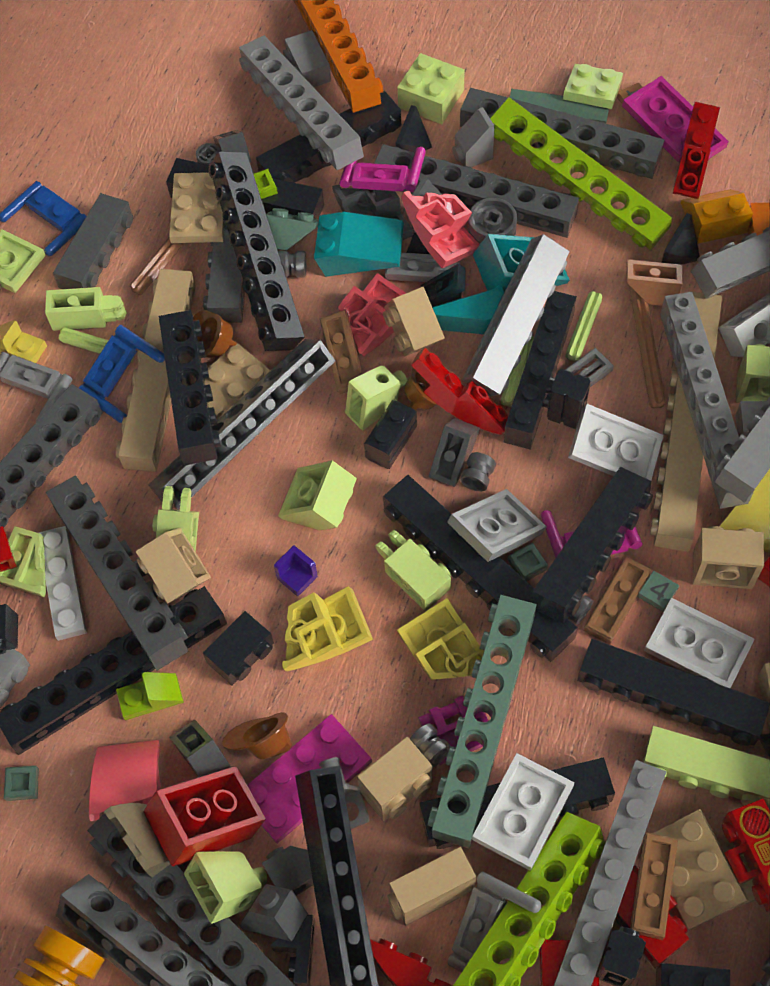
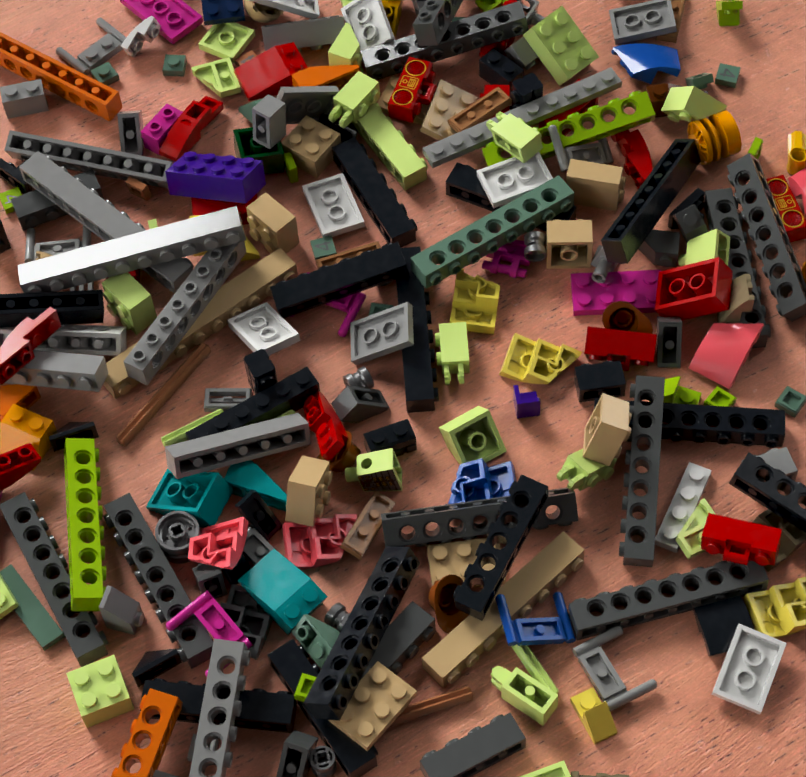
camera: 140 degrees left, 5 degrees down
(99, 726) = (720, 398): none -> lime tile
(246, 703) = (611, 342): none -> red piece
(267, 462) = (480, 482): none -> blue slope
(567, 854) = (515, 136): none -> yellowish green hinge
(654, 280) = (122, 408): nougat slope -> none

